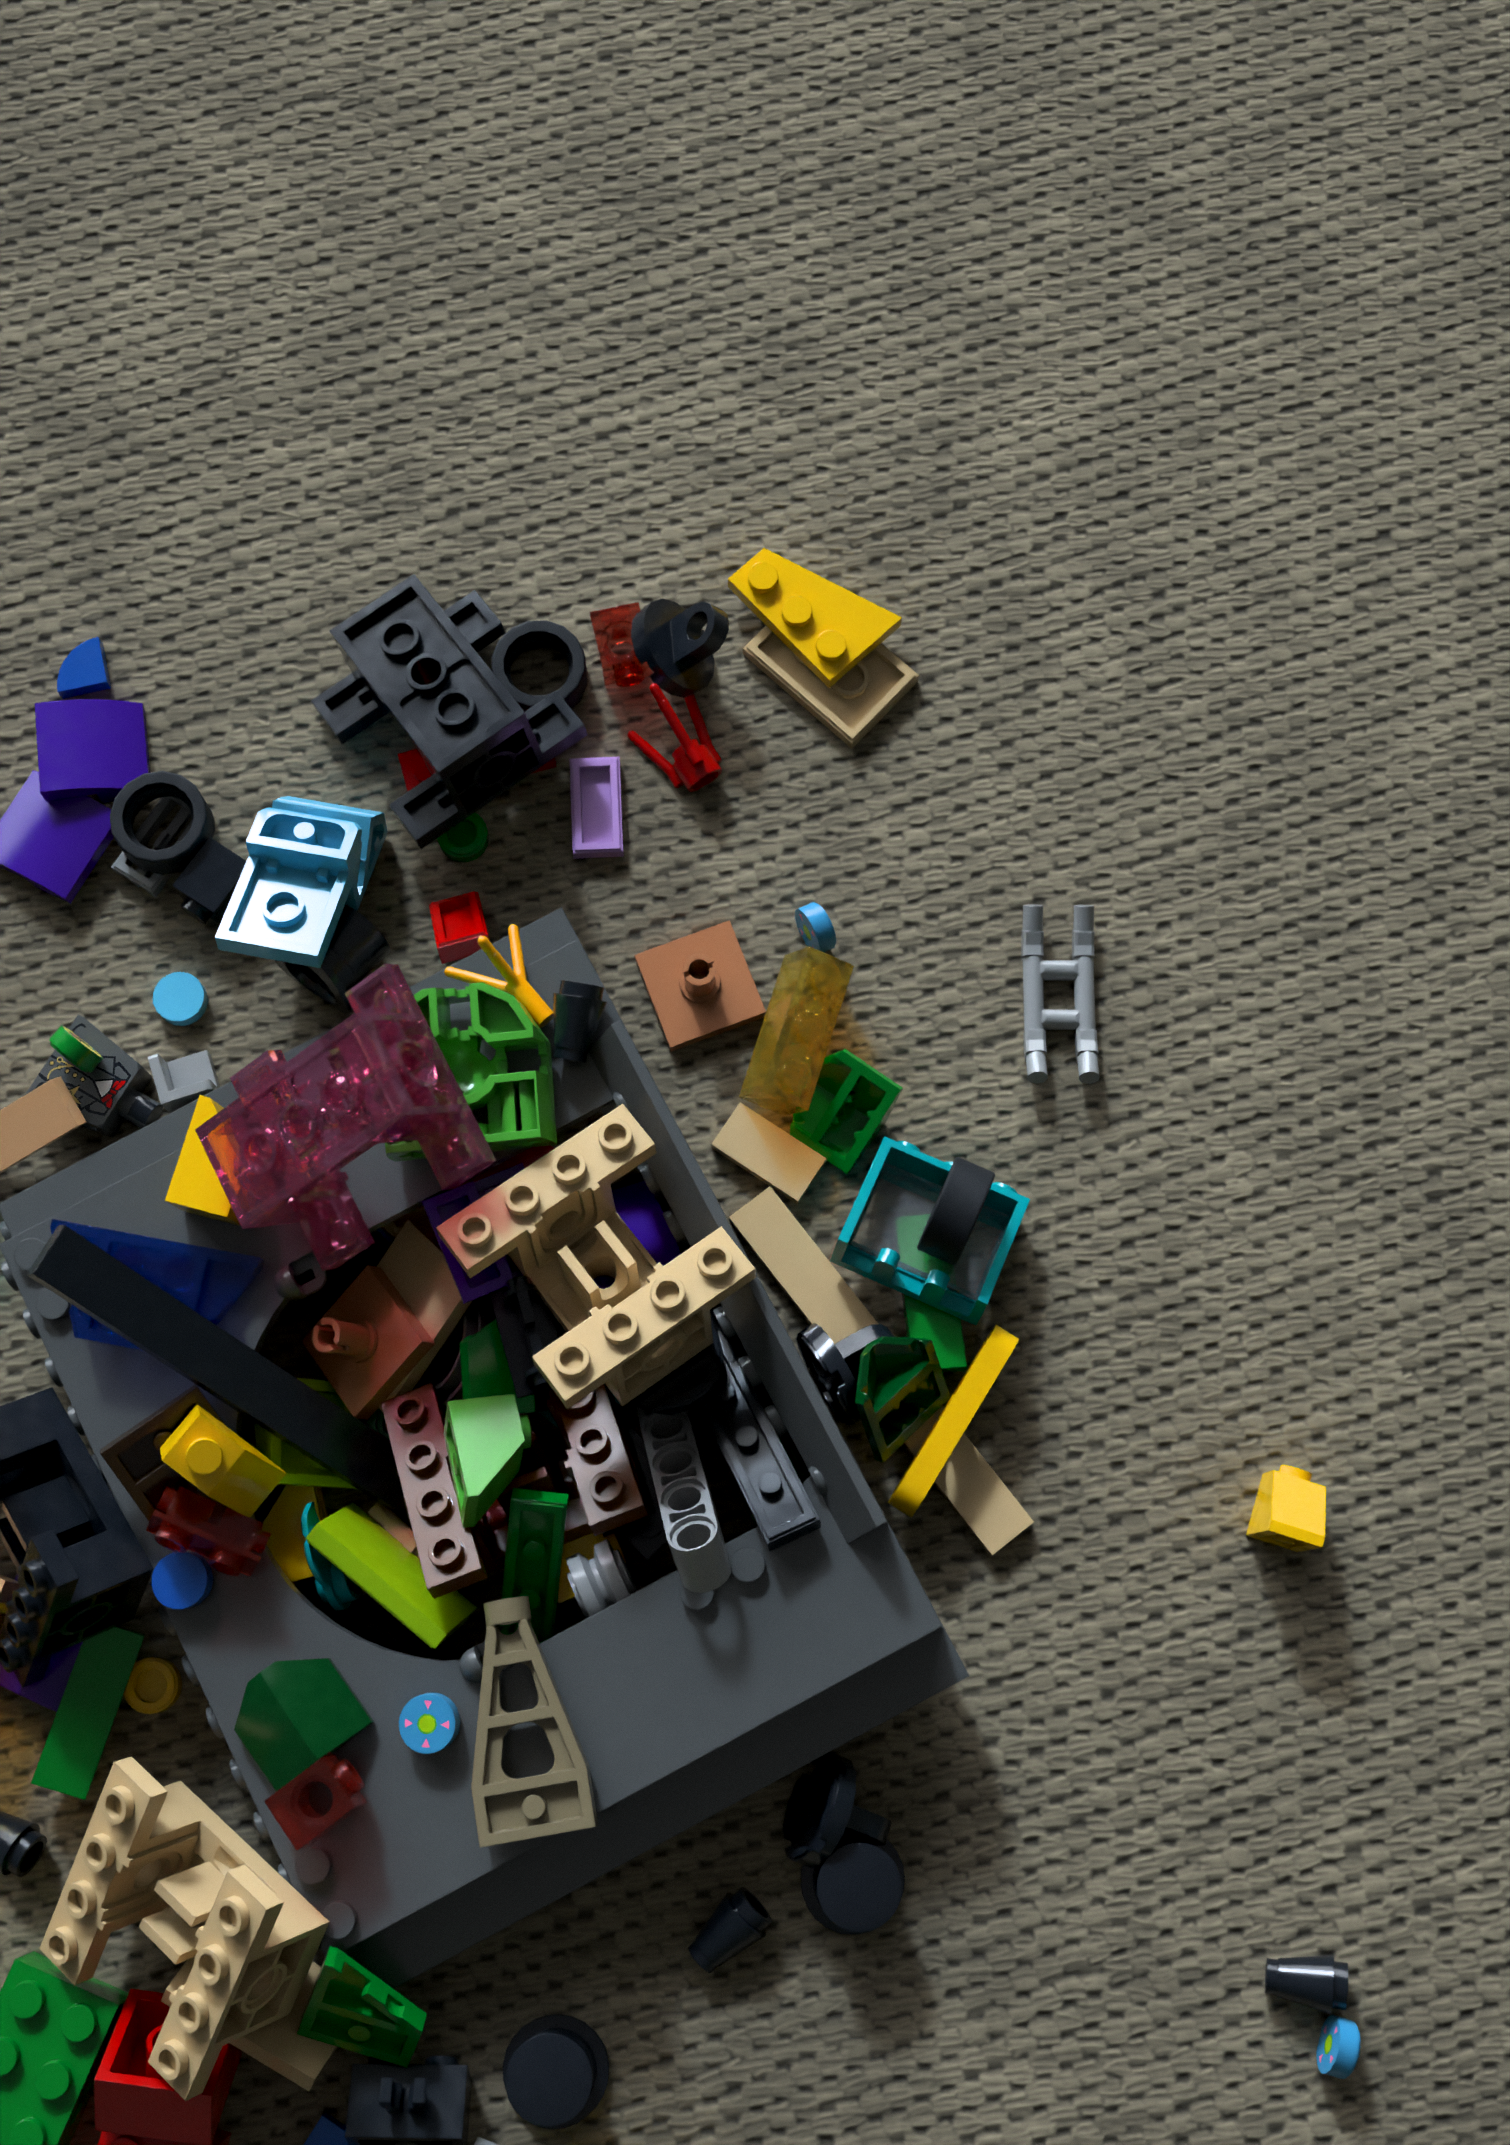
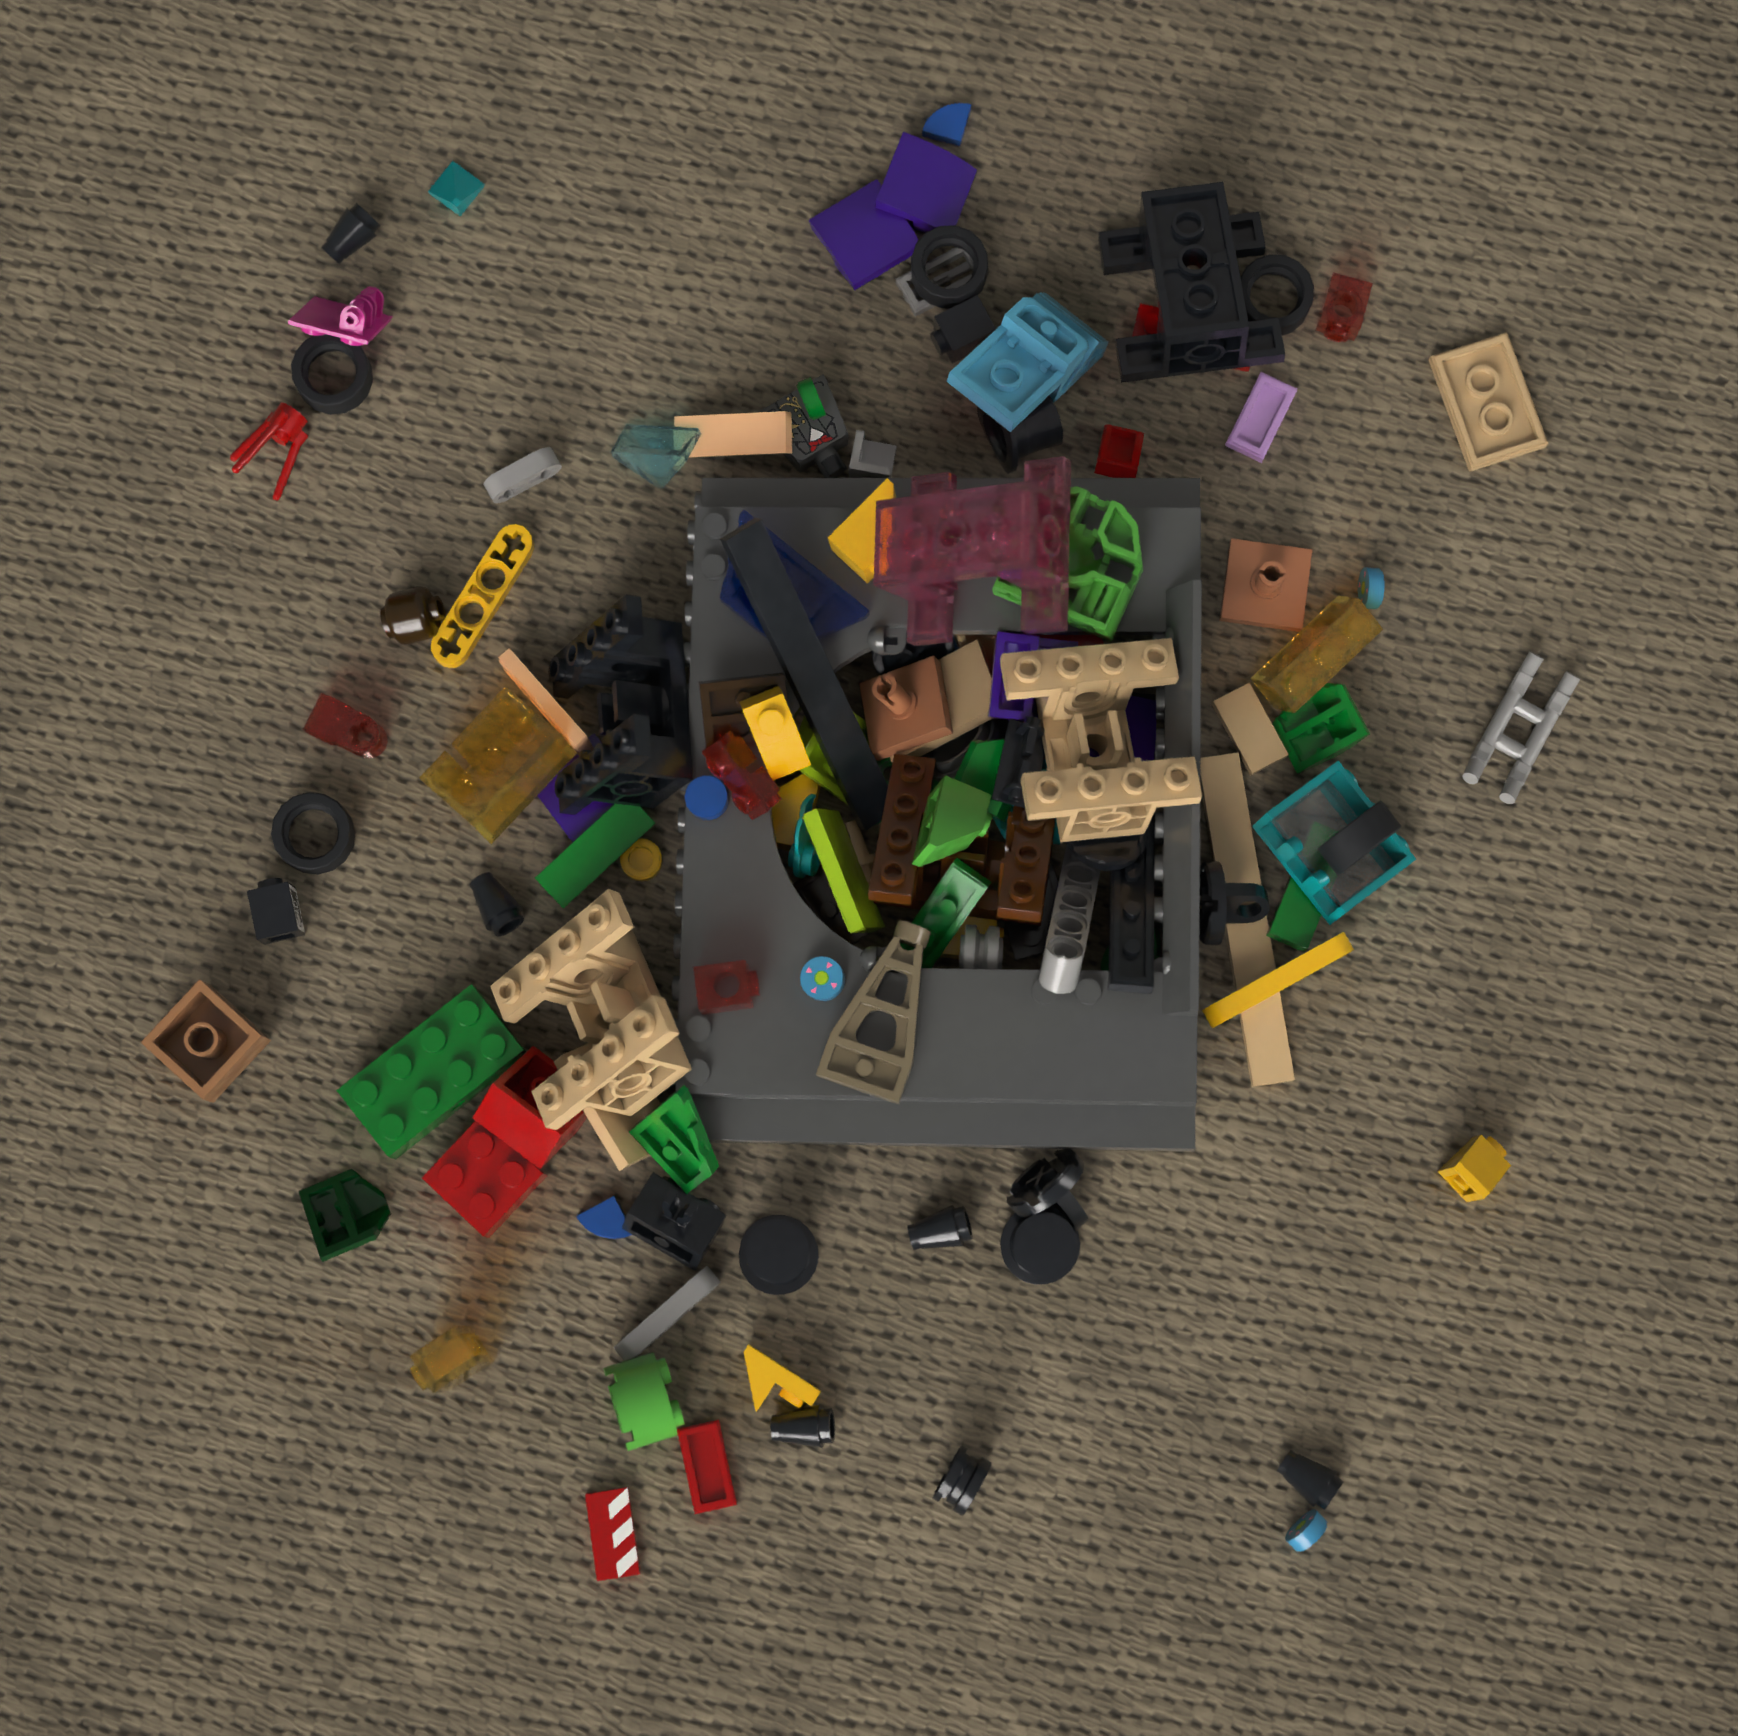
camera: 30 degrees right, 5 degrees up
(180, 998) = (896, 399): medium azure tile -> none
(297, 1716) = (738, 926): dark green slope -> none
(465, 840) = (1155, 392): green tile -> none
(516, 980) = (1143, 511): light orange plant -> none
(576, 1019) = (1171, 561): black cone -> none
(676, 644) = (1383, 329): black tile -> none
(694, 763) = (1350, 421): red plant -> none
(811, 615) = (1494, 358): yellow wing -> none
(897, 1390) = (1251, 937): dark green slope -> none

